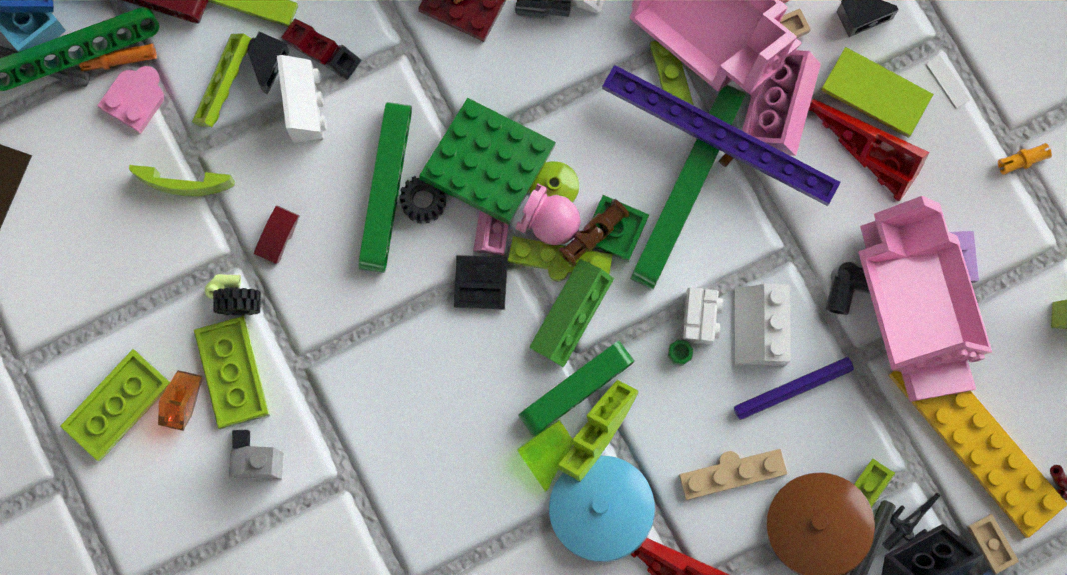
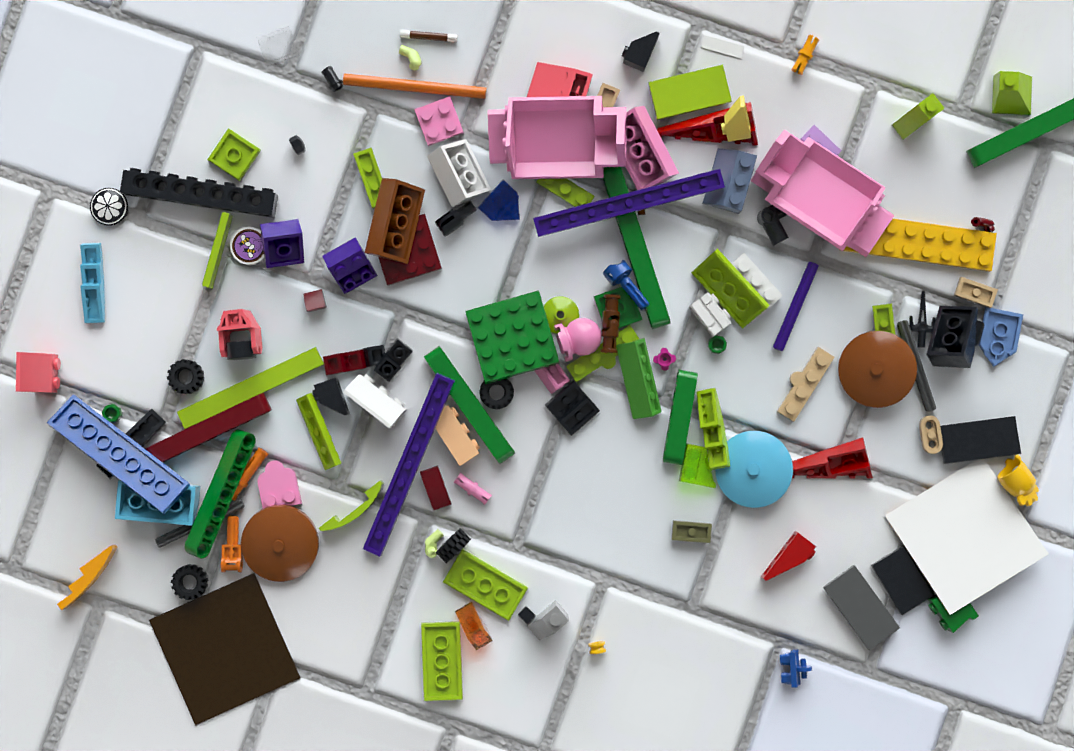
camera: 45 degrees left, 10 degrees up
(32, 115) = (232, 550): none -> orange connector
(81, 148) = (280, 543): none -> dark orange dish
(271, 185) = (409, 464): none -> dark purple plate
(276, 537) = (597, 647): none -> yellow bush
(310, 268) = (472, 488): none -> bright pink pin
(343, 201) = (456, 436): none -> light nougat brick
(355, 79) = (393, 359): none -> black slope
(480, 511) = (691, 531): none -> olive plate
(597, 32) = (501, 203): none -> clear blue slope
(620, 313) = (669, 359): none -> dark pink plate
(647, 198) = (620, 276): none -> blue piece
(744, 308) = (730, 288): none -> lime tile
(850, 207) = (736, 173): none -> sand blue slope
(899, 155) = (737, 121): none -> light yellow slope

